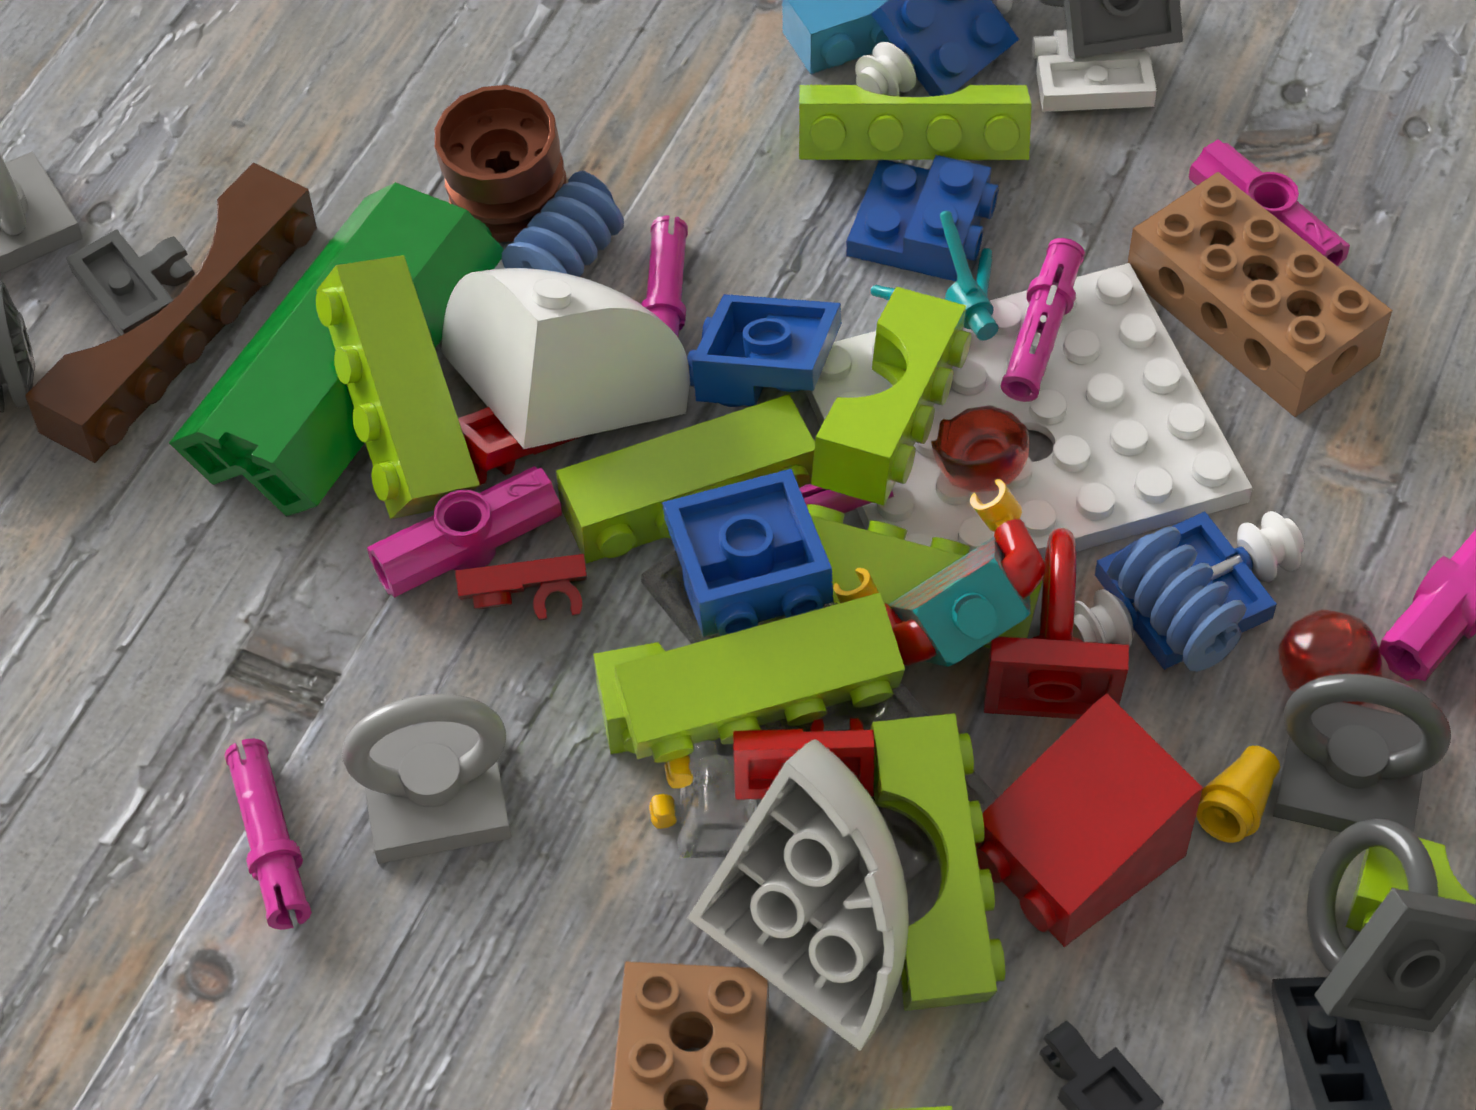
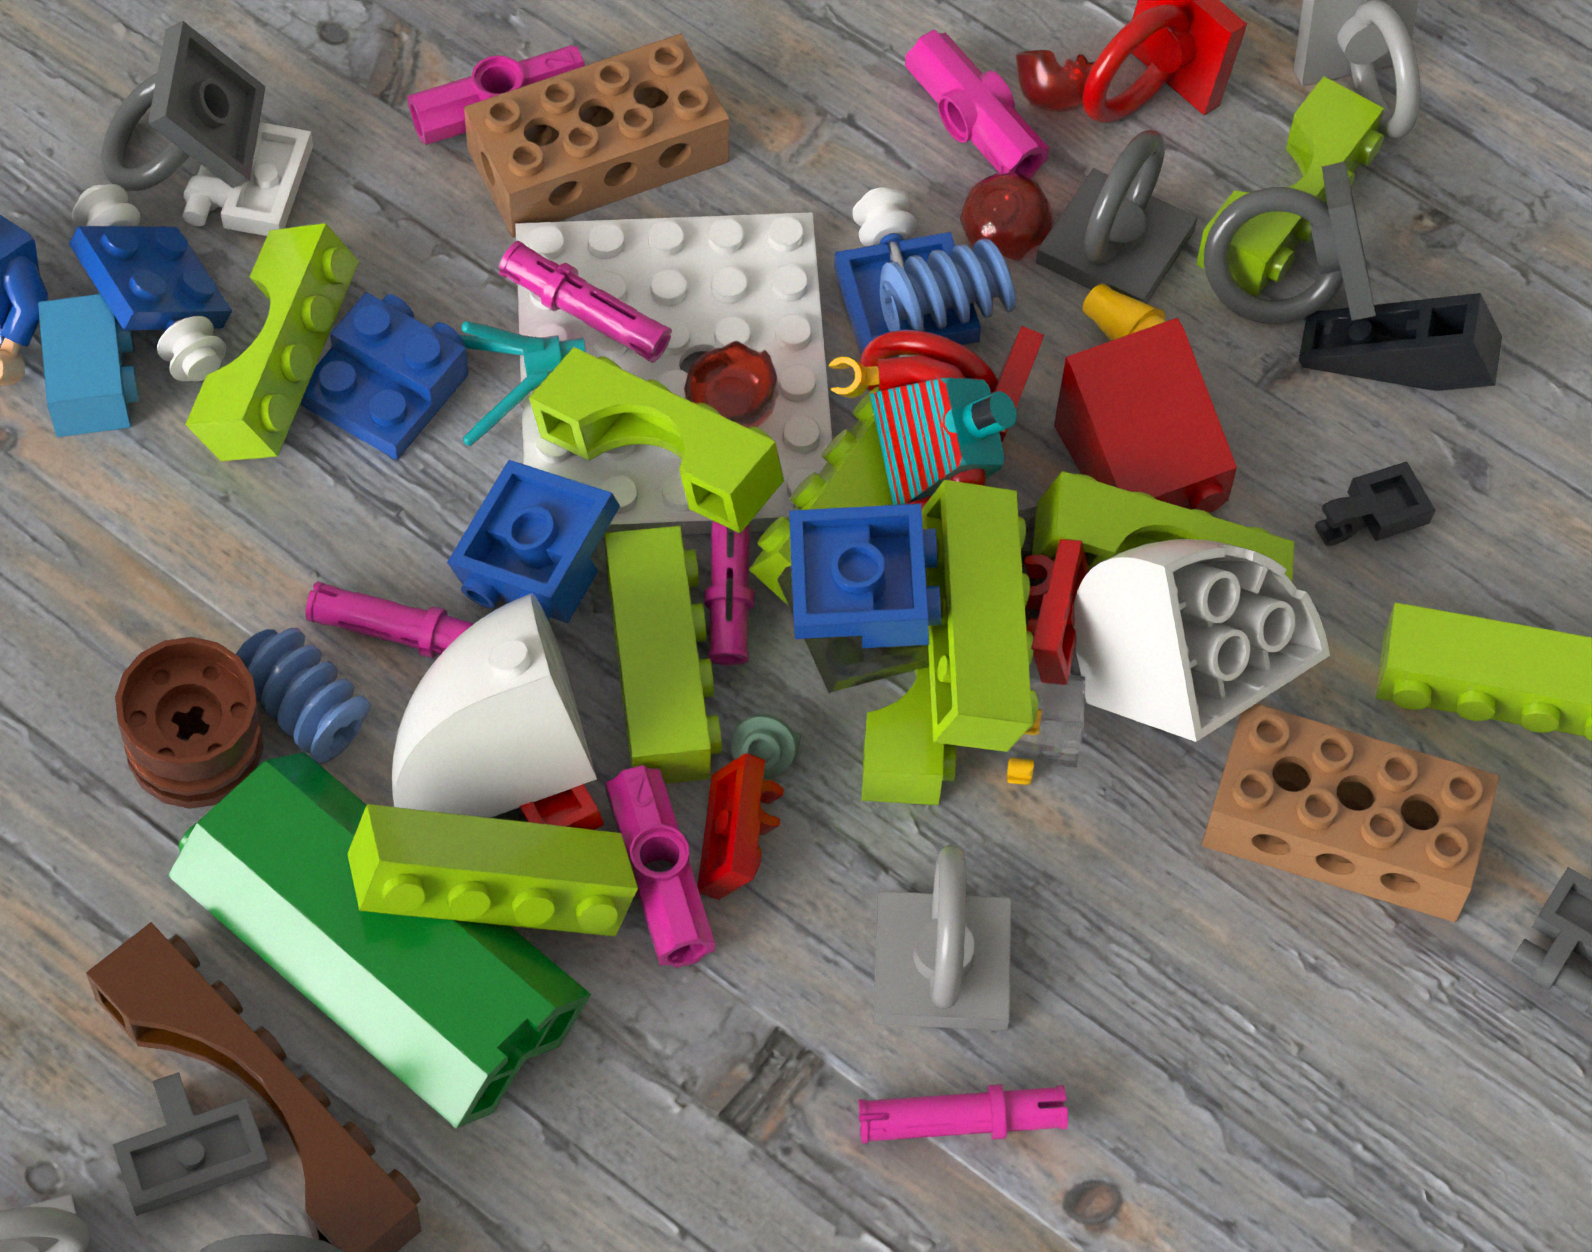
camera: 80 degrees left, 5 degrees up
(620, 590) = (767, 739): none -> sand green plate

